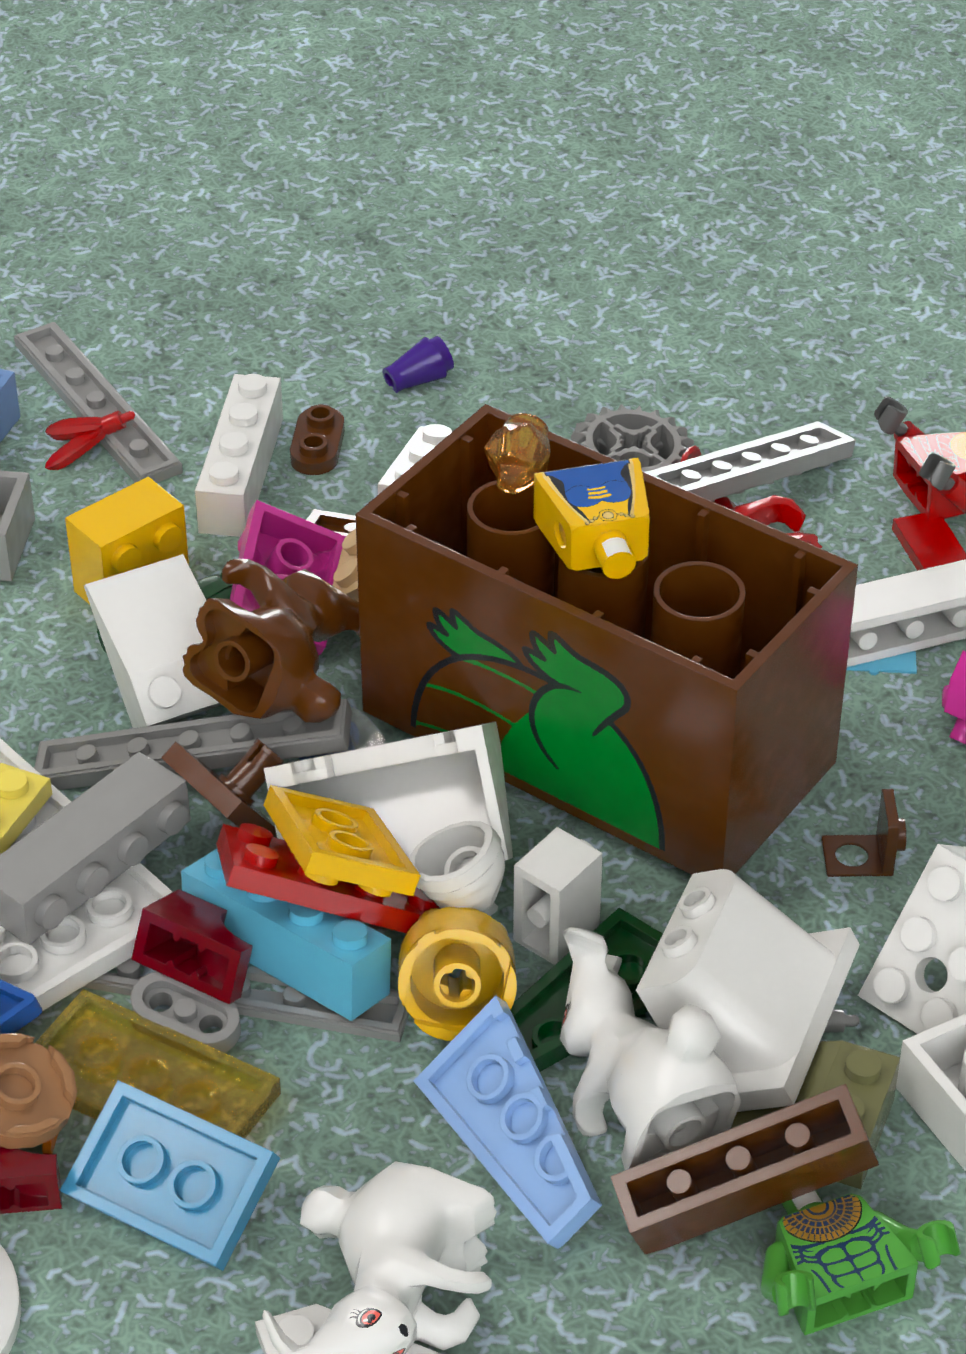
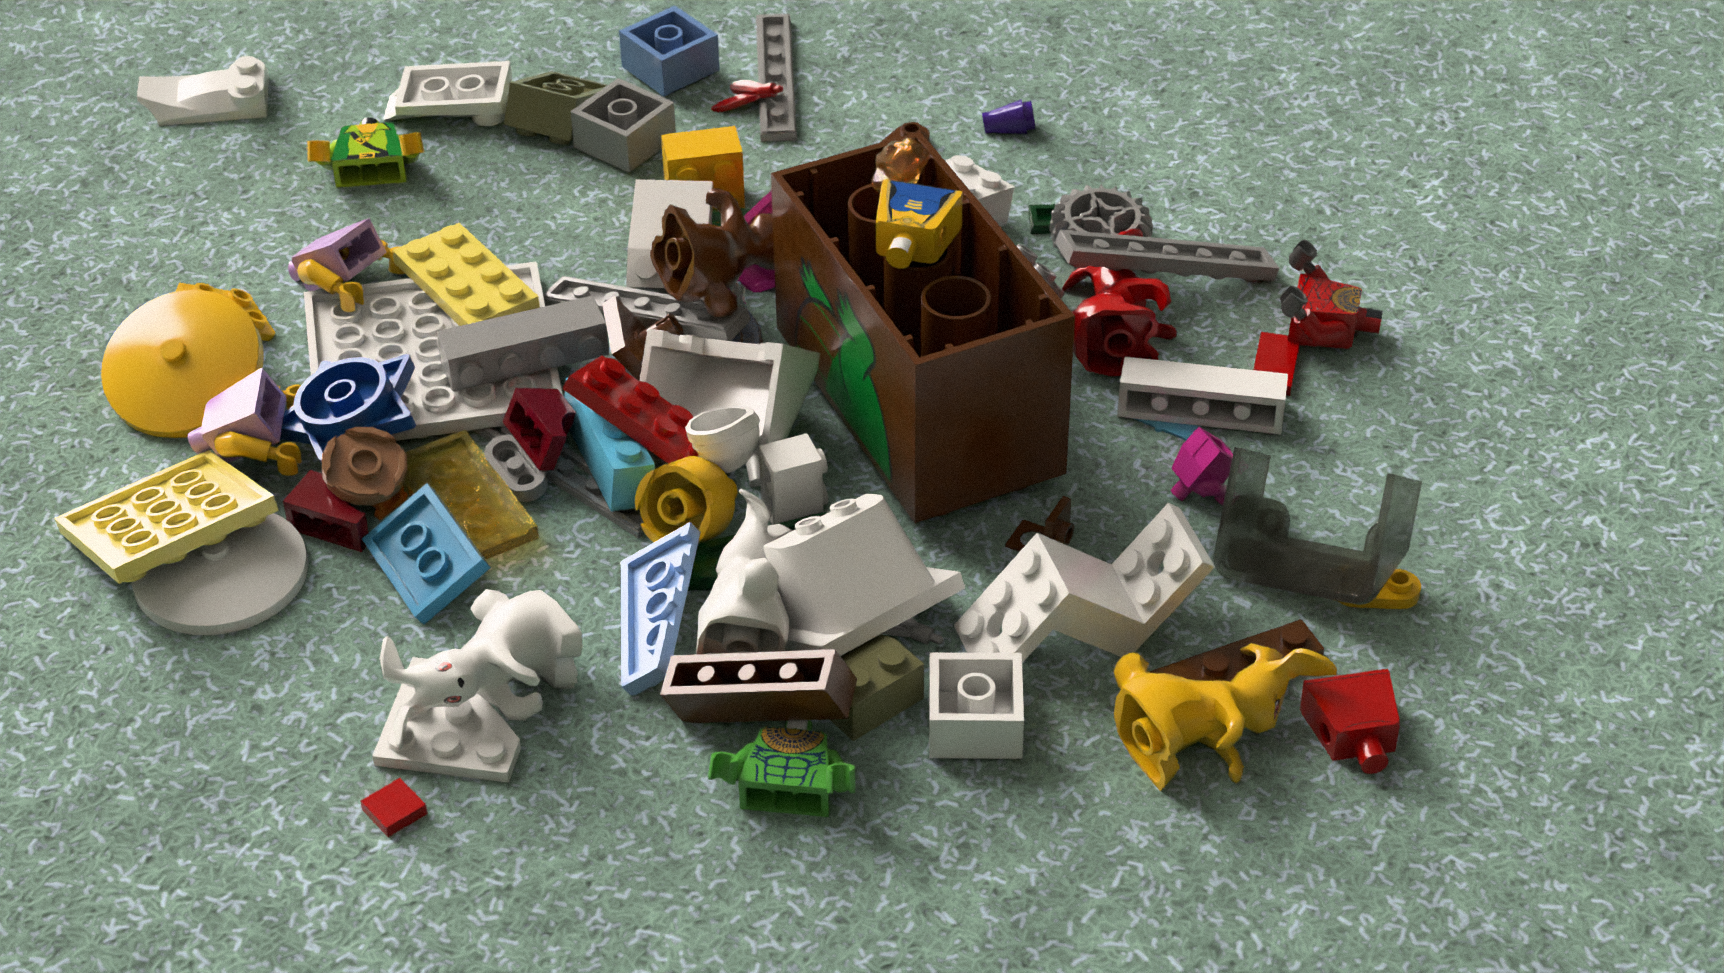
camera: 30 degrees right, 0 degrees up
(239, 454) = (843, 127): white brick -> none
(341, 842) = (658, 390): yellow plate -> none

